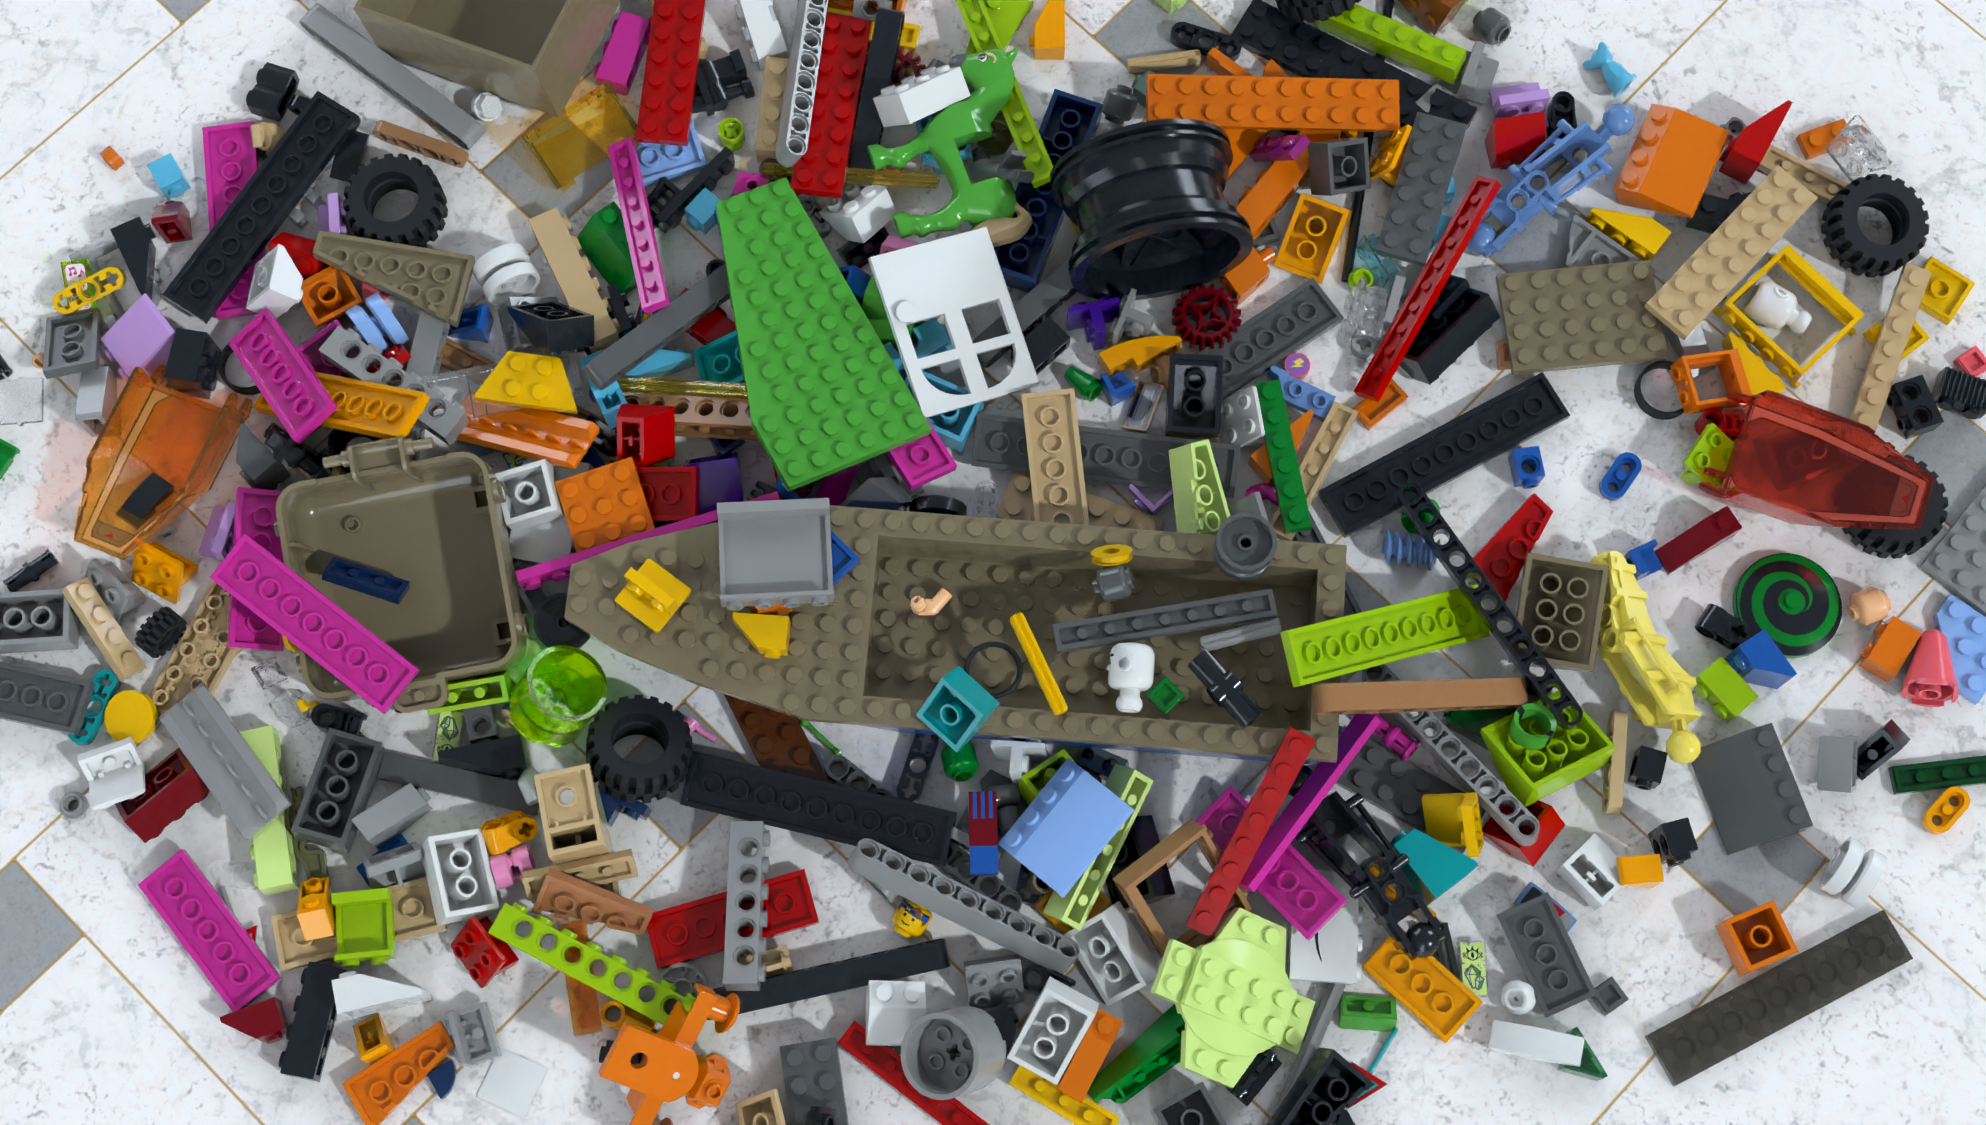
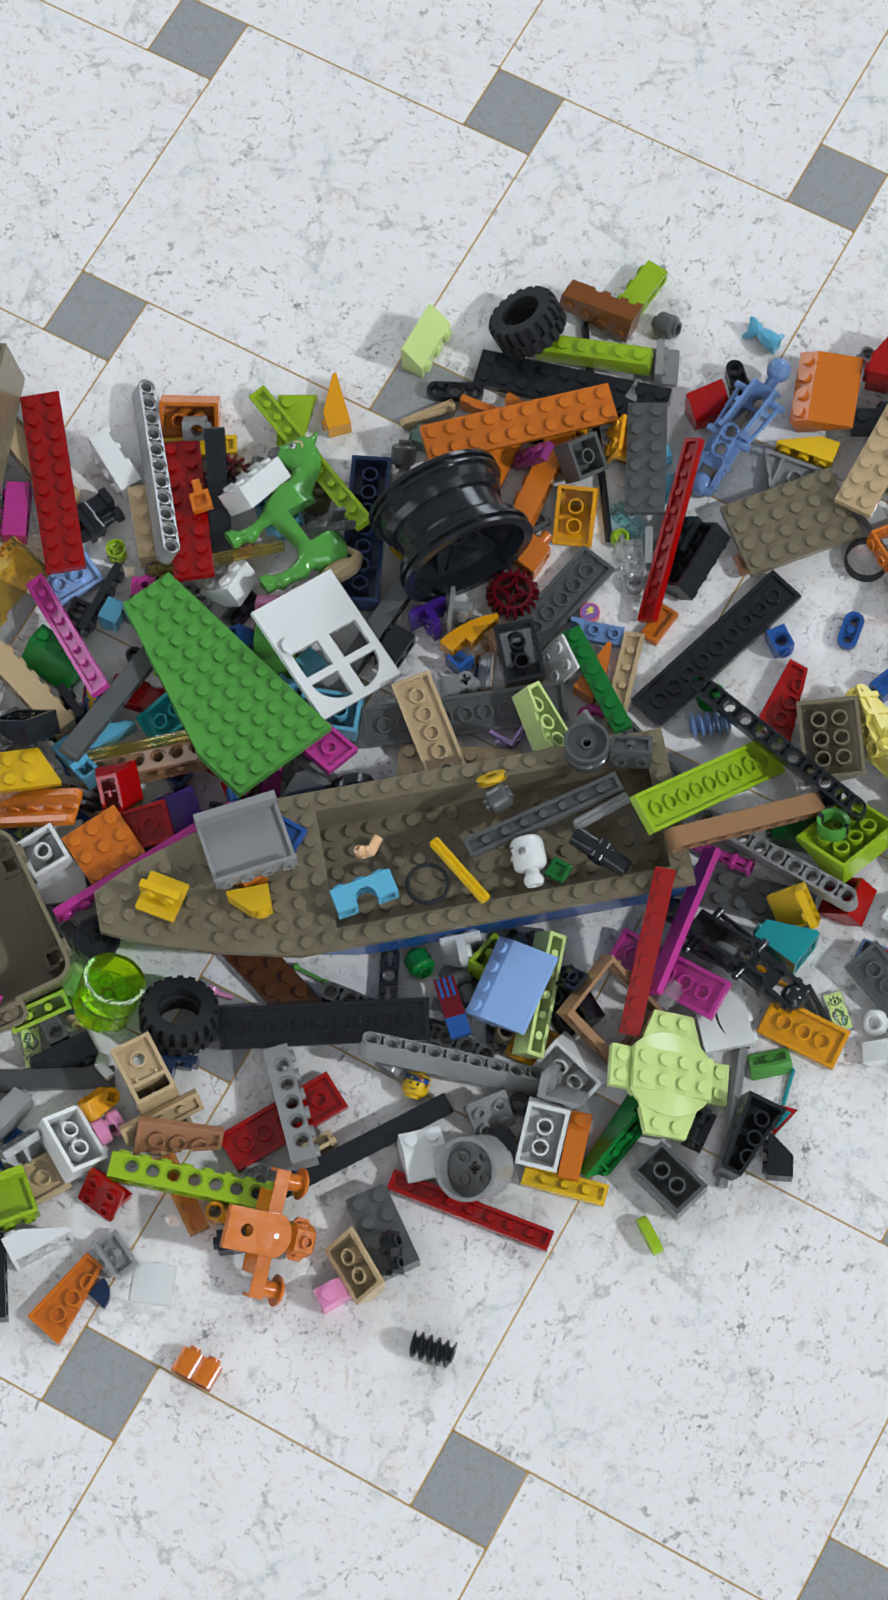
camera: 10 degrees left, 5 degrees down
(373, 1039) = (40, 1278): light orange slope -> none
(851, 95) = (201, 498): none -> orange plate
(884, 659) = (379, 884): none -> medium azure arch
(957, 708) = (409, 917): teal slope -> none
(1084, 384) = (437, 667): green cone -> none
(1085, 982) = (552, 1092): none -> light grey bracket
(1108, 415) = (459, 684): none -> light grey piece
(1144, 842) = (571, 980): none -> black slope
(1265, 894) = (670, 995): none -> clear brick
(1299, 566) = (630, 751): none -> dark grey bracket
(1519, 100) = (702, 375): lavender bracket -> none

